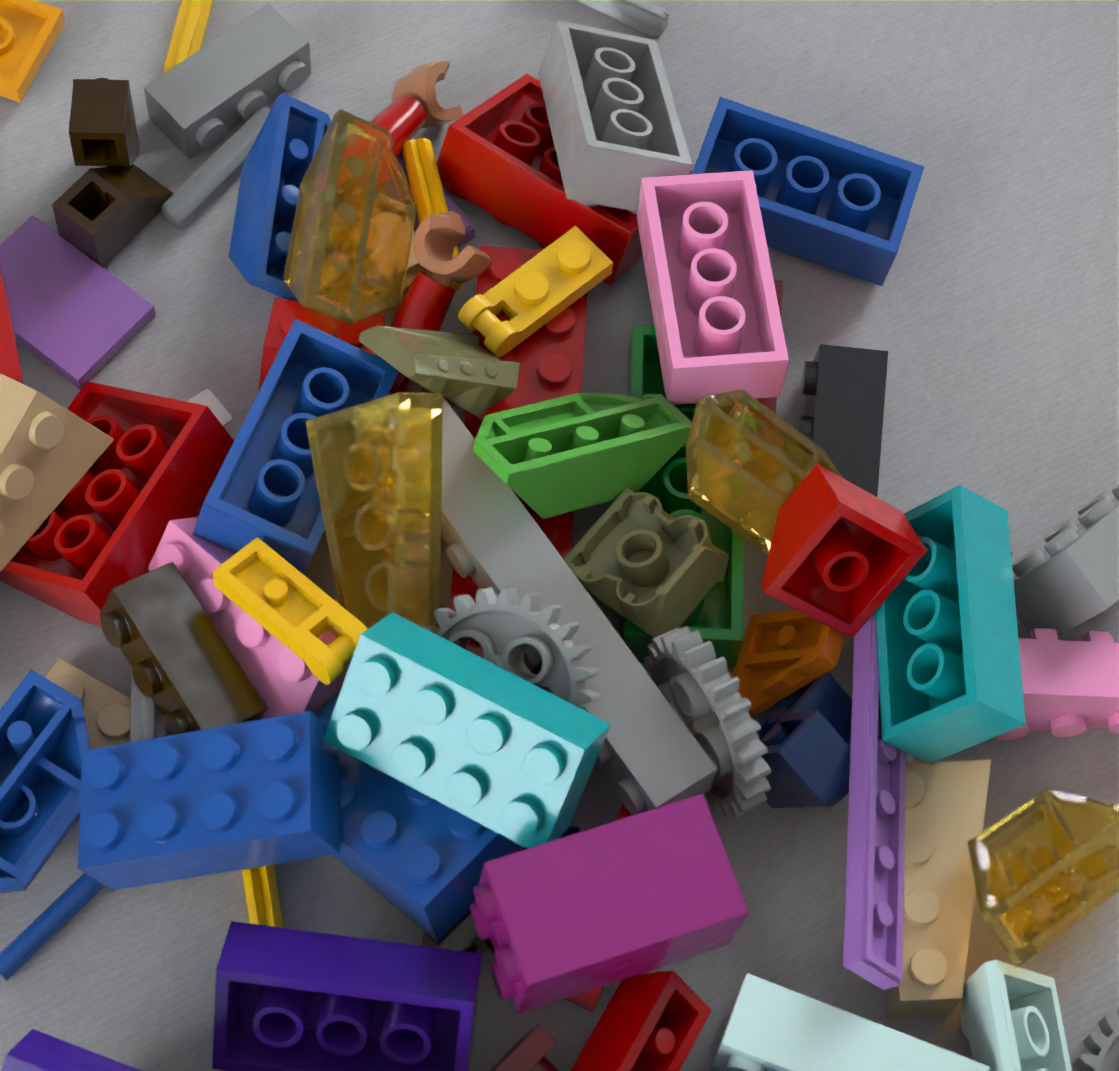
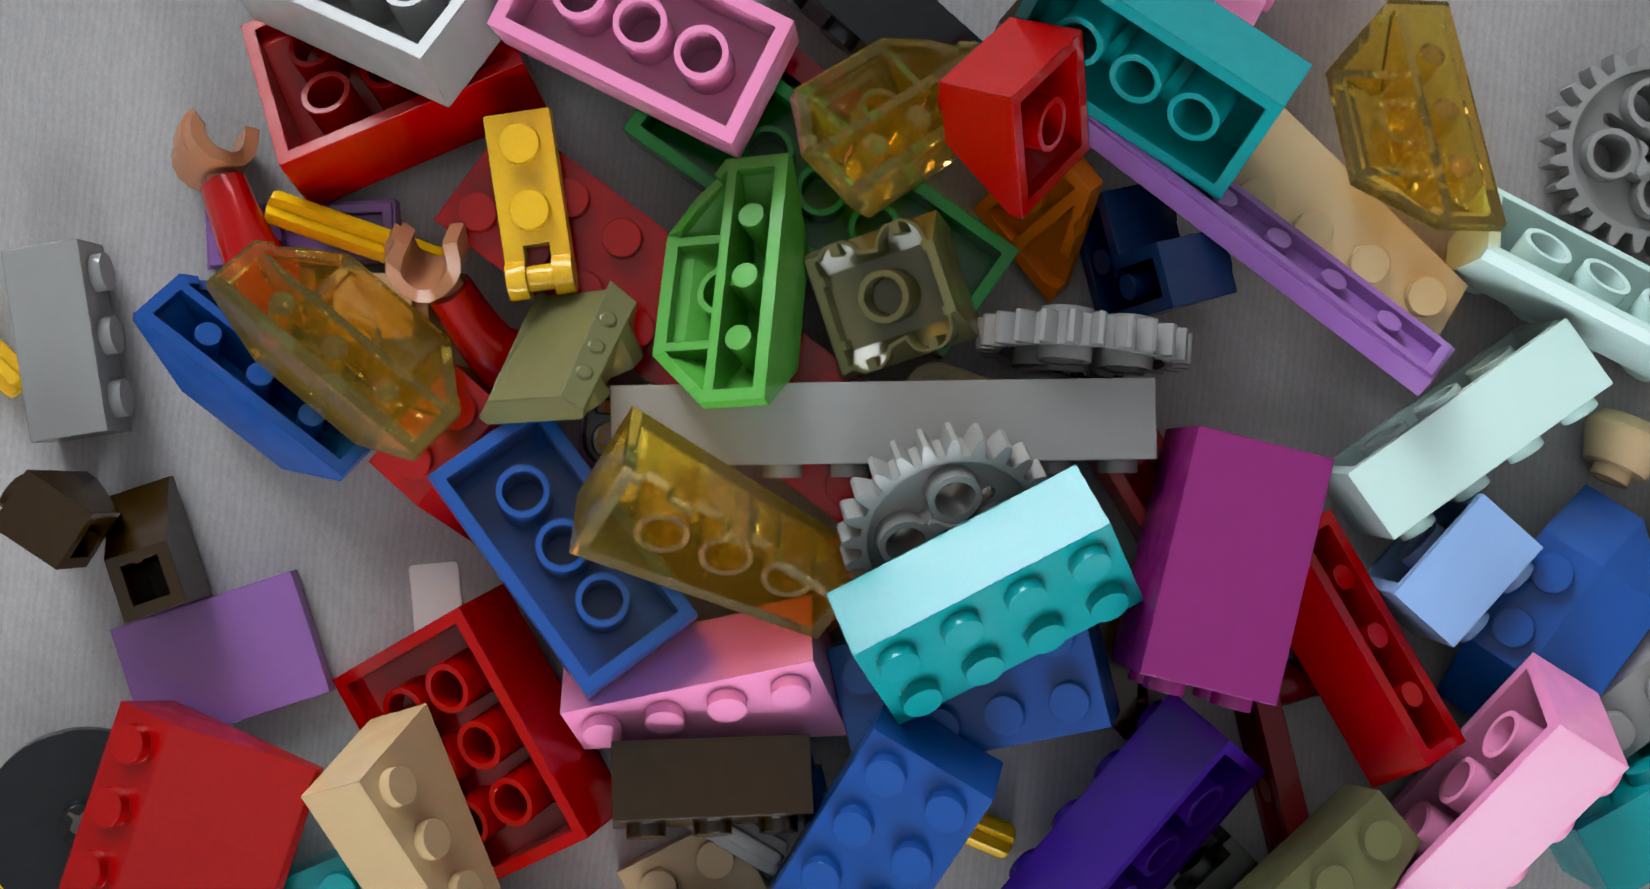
camera: 50 degrees left, 25 degrees up
(213, 174) = (168, 416): light grey axle -> none
(290, 608) = (744, 672): yellow plate -> none

